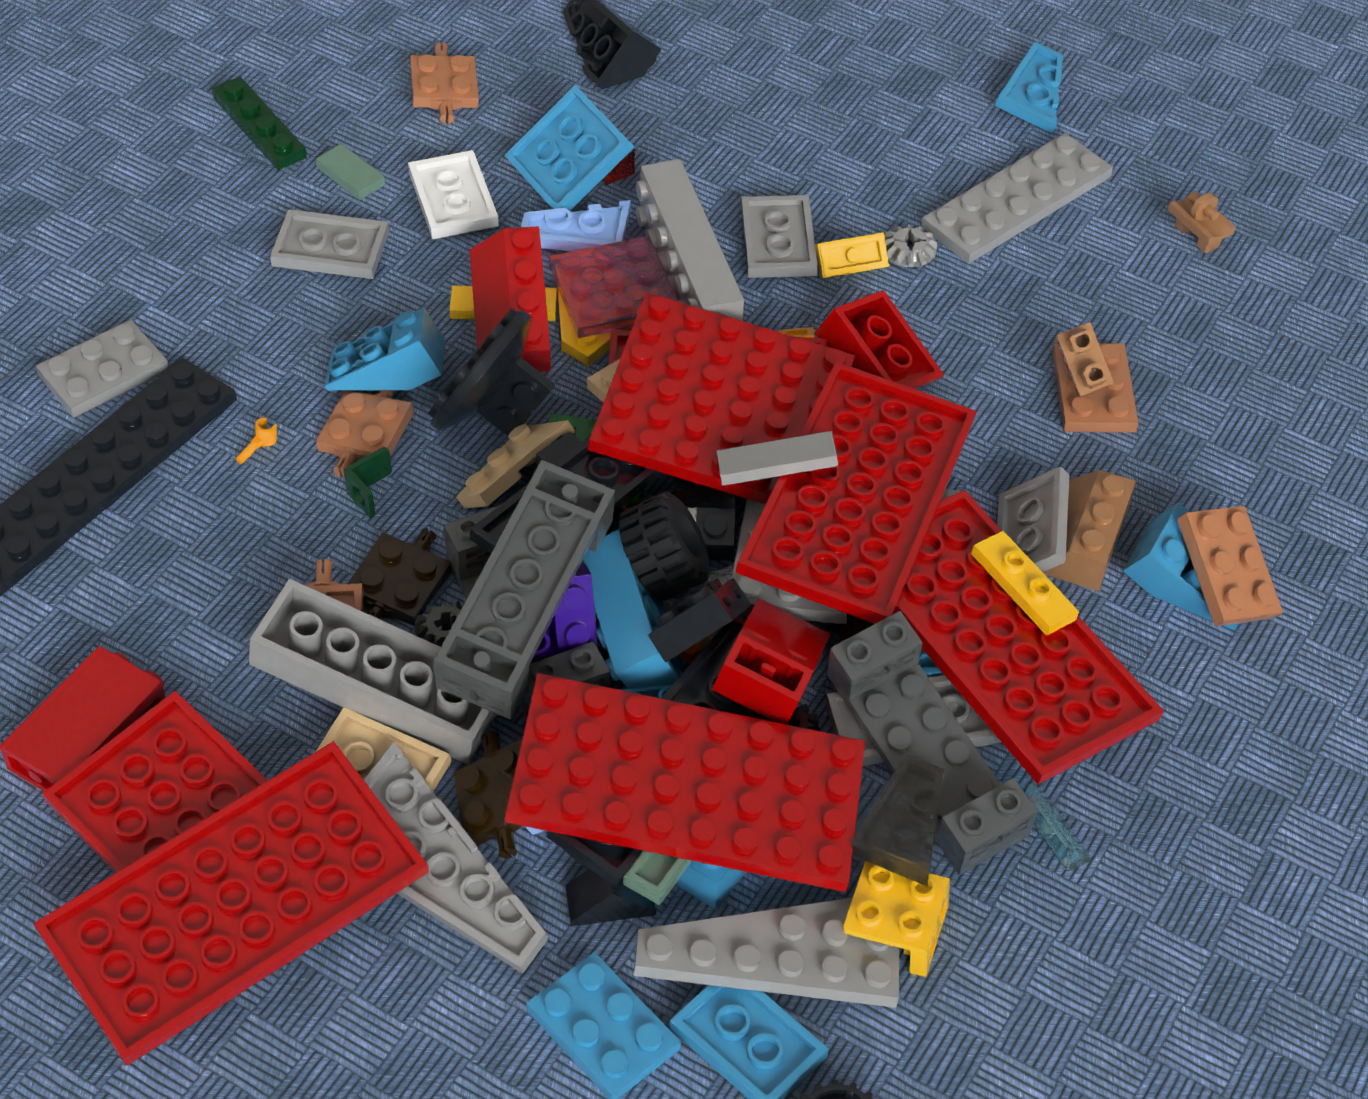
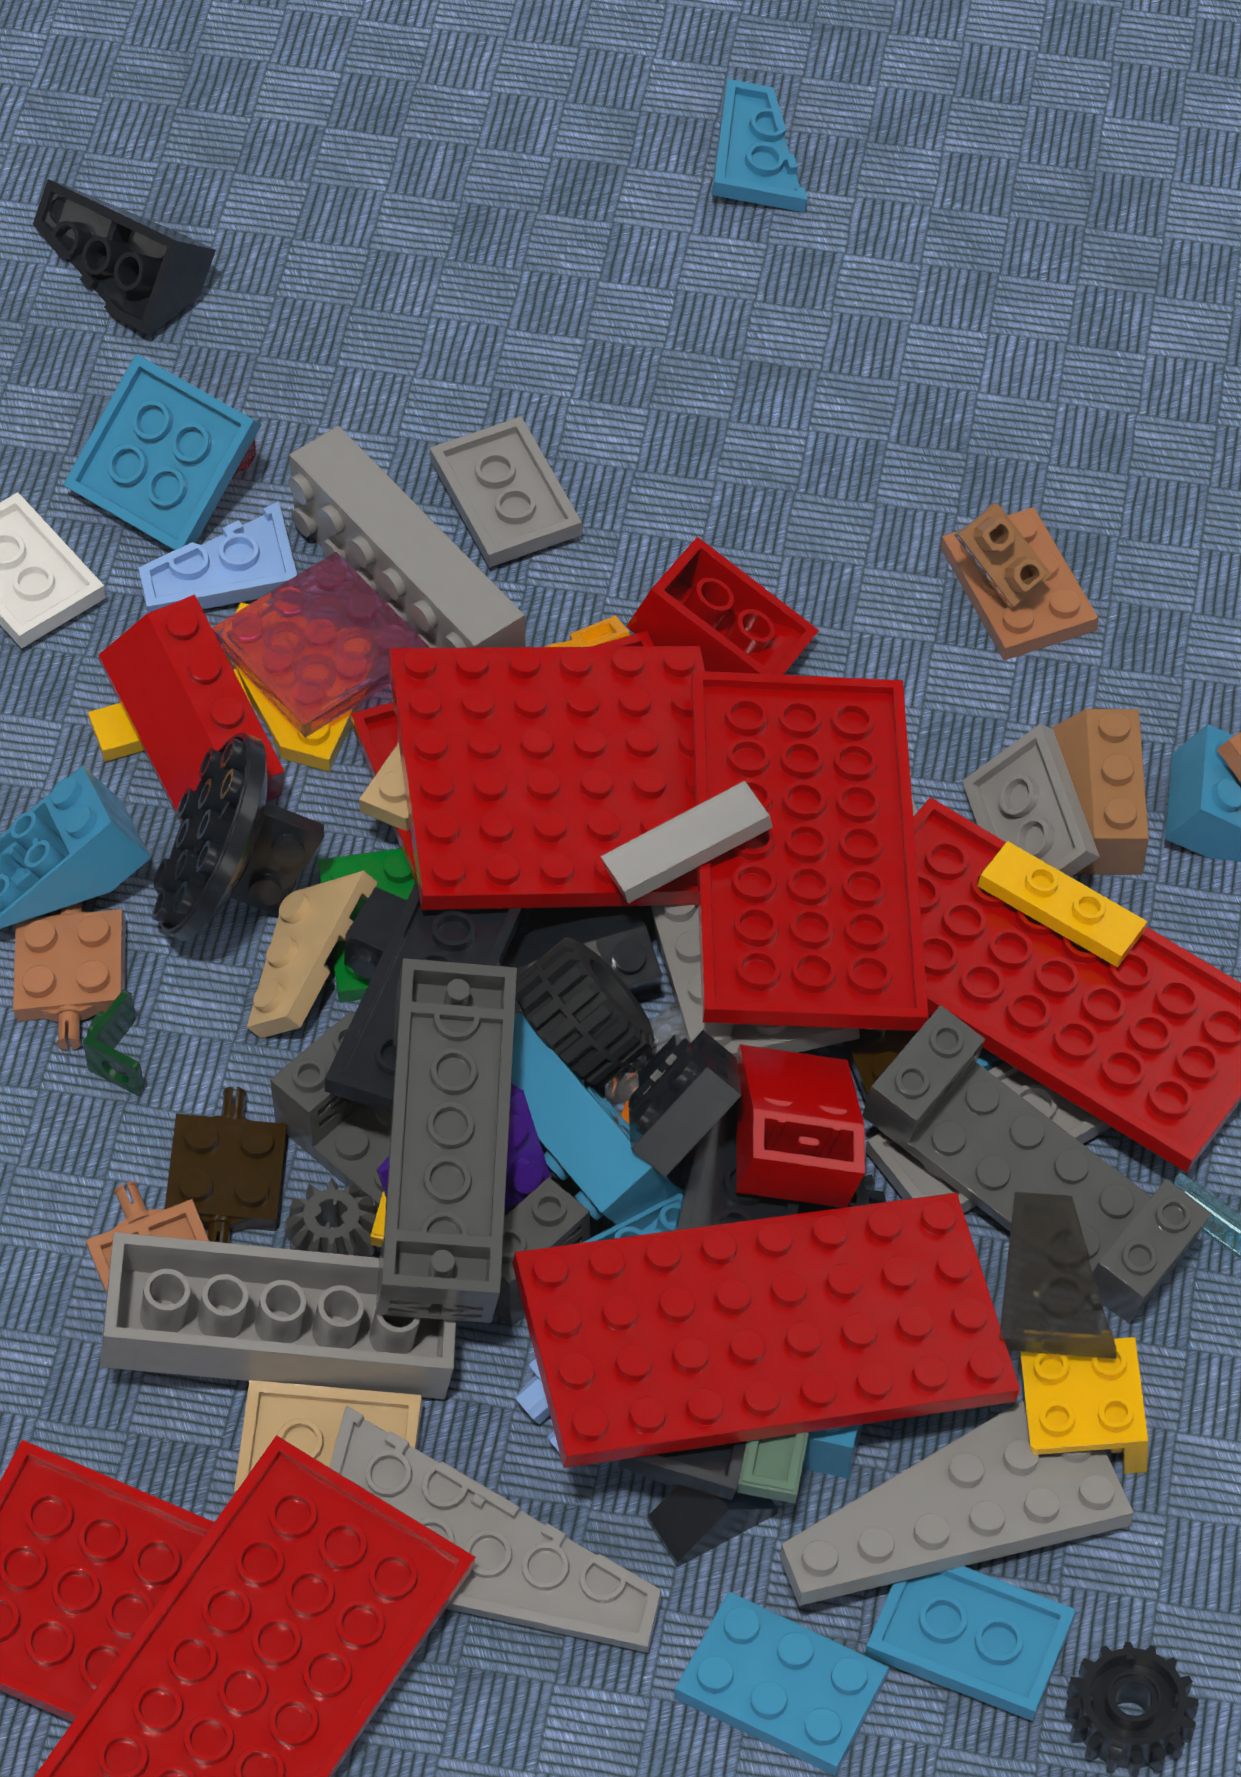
camera: 20 degrees left, 5 degrees up
(485, 793) = (504, 1425): dark brown plate -> none
(851, 255) = (619, 489): yellow plate -> none
(898, 251) = (675, 461): light grey gear -> none
(1016, 197) = (798, 329): light grey plate -> none
(1201, 217) = (1062, 288): medium nougat hips -> none

